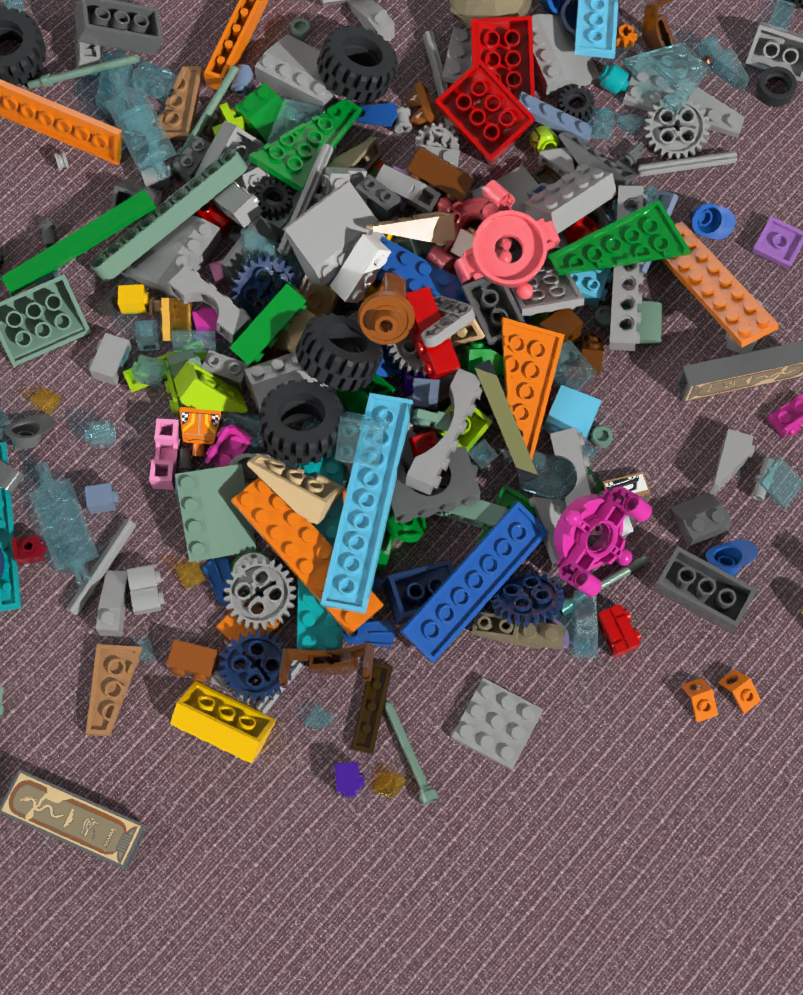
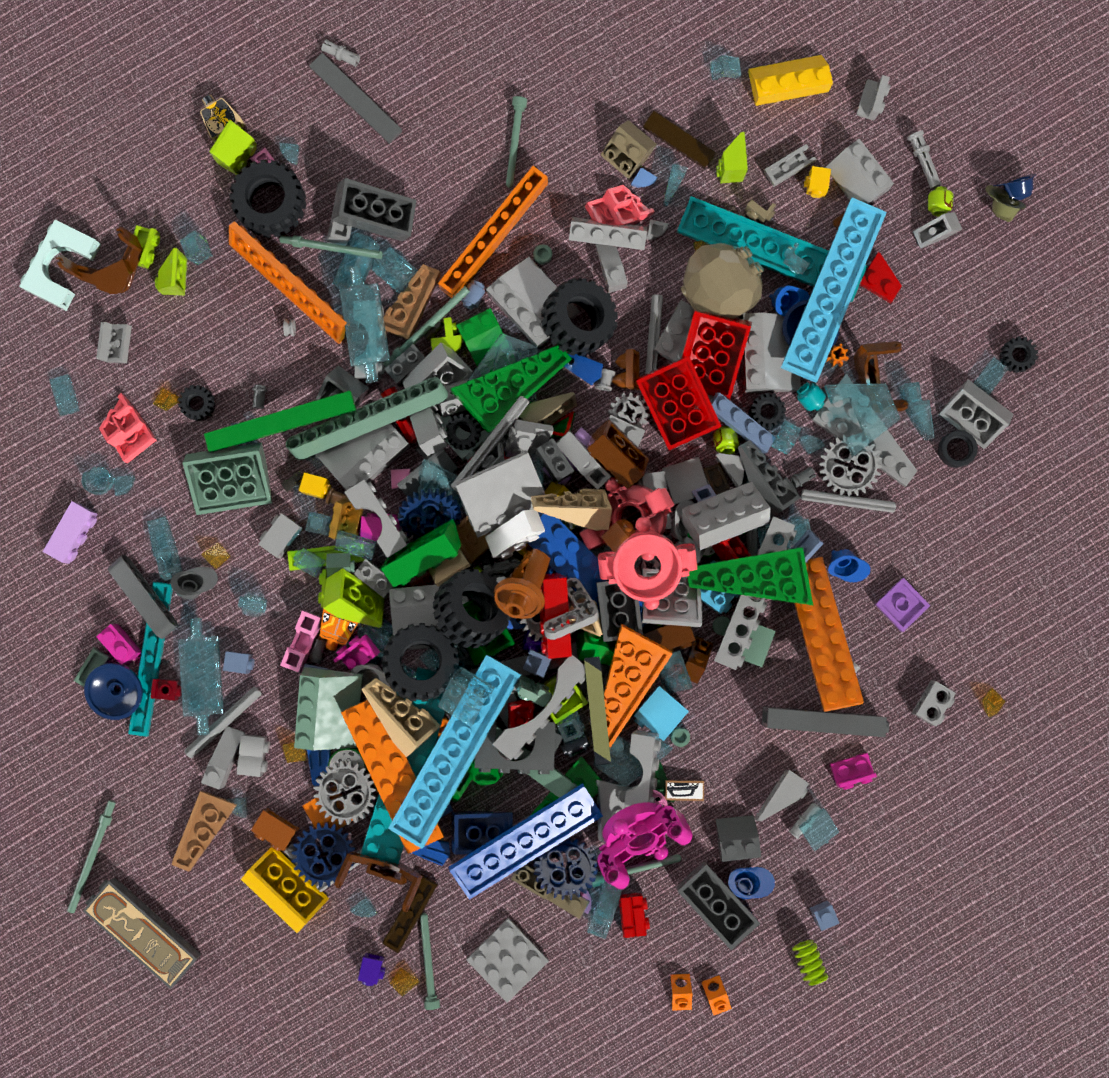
camera: 20 degrees right, 15 degrees up
(493, 474) = (575, 746): none -> black brick

